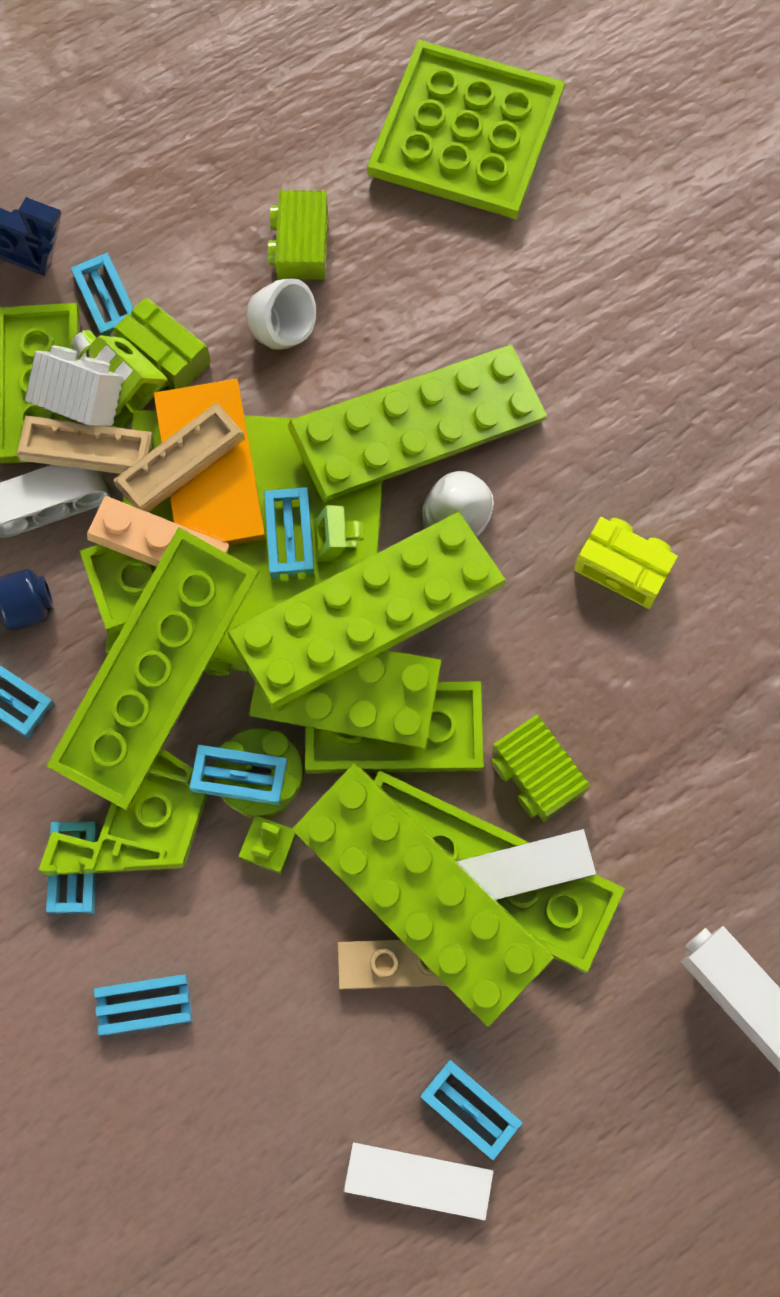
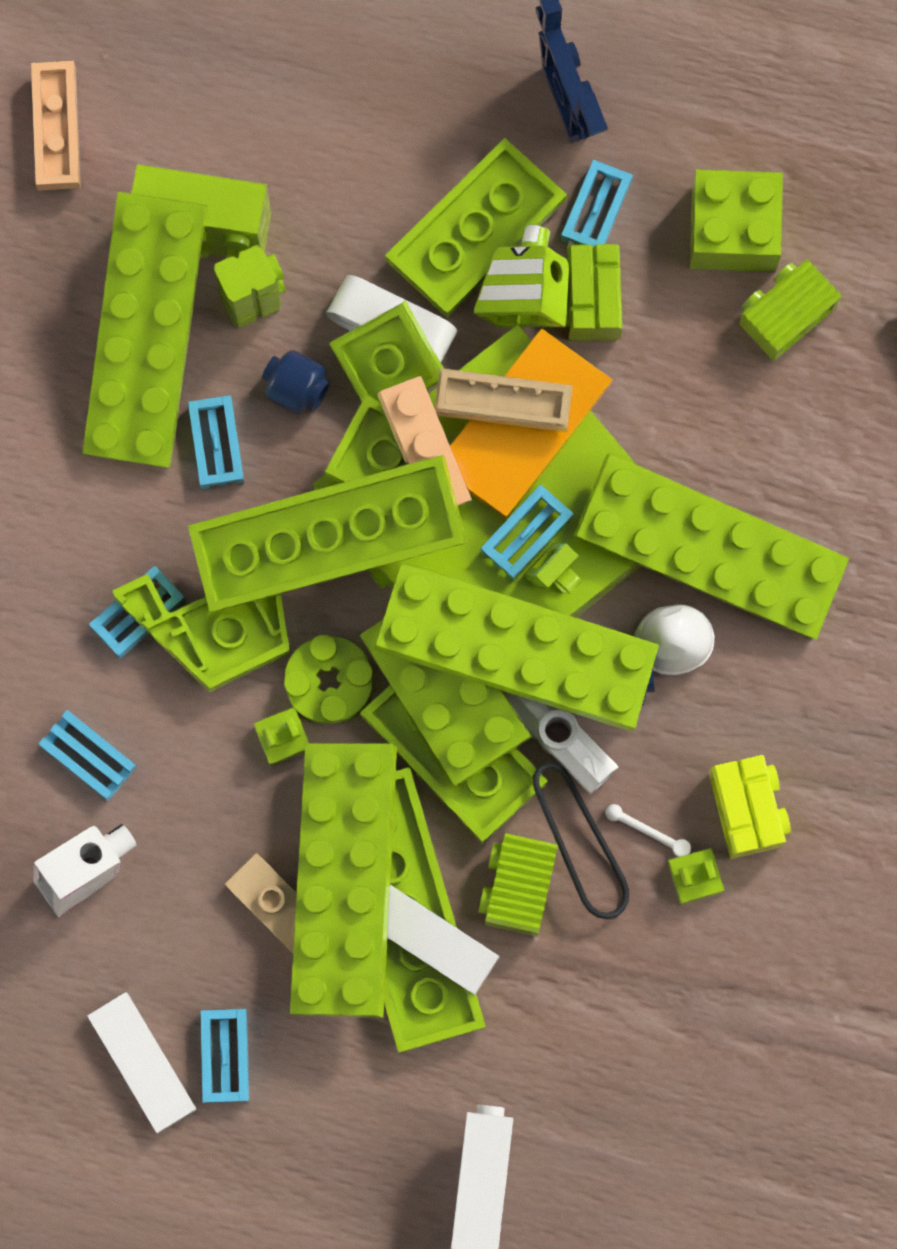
camera: 45 degrees right, 5 degrees up
(61, 515) = (387, 353): none -> lime tile
(74, 387) = (488, 266): white brick -> none
(82, 445) = (452, 317): tan plate -> none
(206, 214) = (736, 220): none -> lime brick
(219, 1107) = (69, 880): none -> white torso
(235, 792) = (331, 700): medium azure tile -> none
(282, 314) = (705, 359): white hat -> none
(480, 643) = (577, 754): none -> white piece
(611, 637) = (679, 848): none -> white hinge
(619, 716) = (625, 897): none -> black piece
(642, 643) = (695, 876): none -> lime tile

